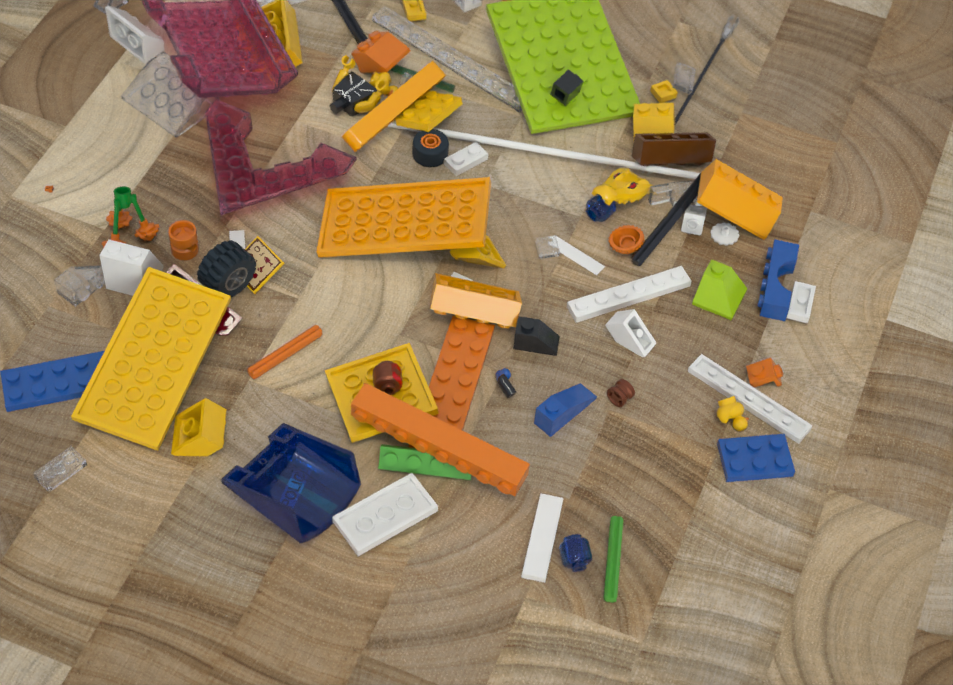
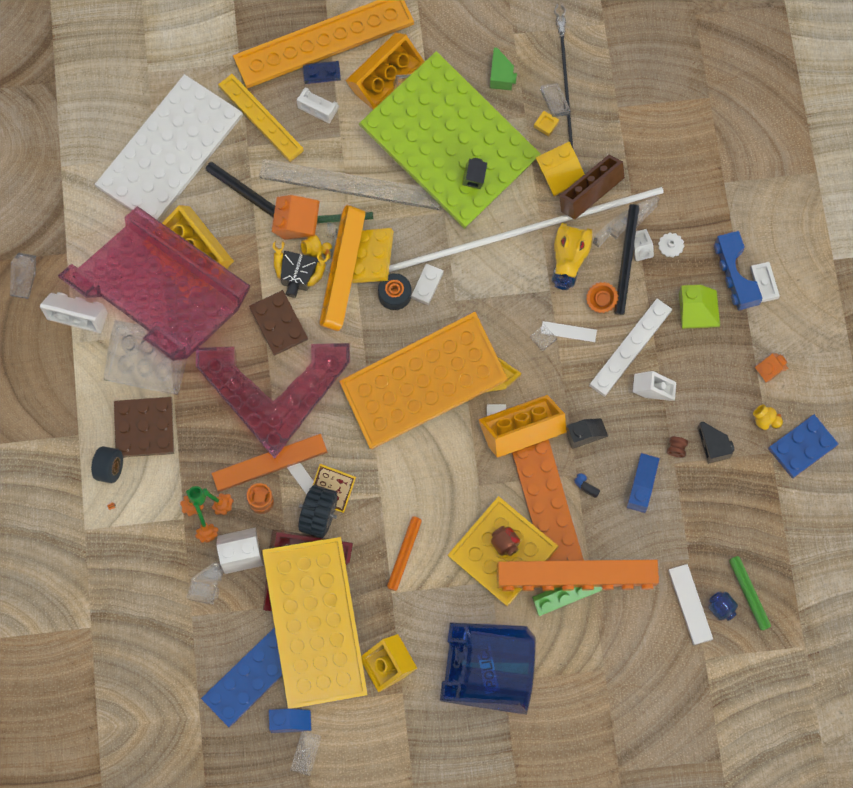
camera: 25 degrees left, 20 degrees up
(64, 429) = (289, 720): none -> blue slope
(69, 151) = (107, 464): none -> black wheel
(126, 145) = (144, 426): none -> reddish brown plate
(217, 223) = (266, 464): none -> orange tile
(307, 125) = (278, 322): none -> reddish brown plate
(384, 514) = (568, 652): white plate -> none
(646, 38) = (502, 72): none -> bright green slope
(662, 409) = (715, 443): none -> black slope
(739, 199) = (672, 214): light orange slope -> none
(751, 398) = (771, 394): white tile -> none

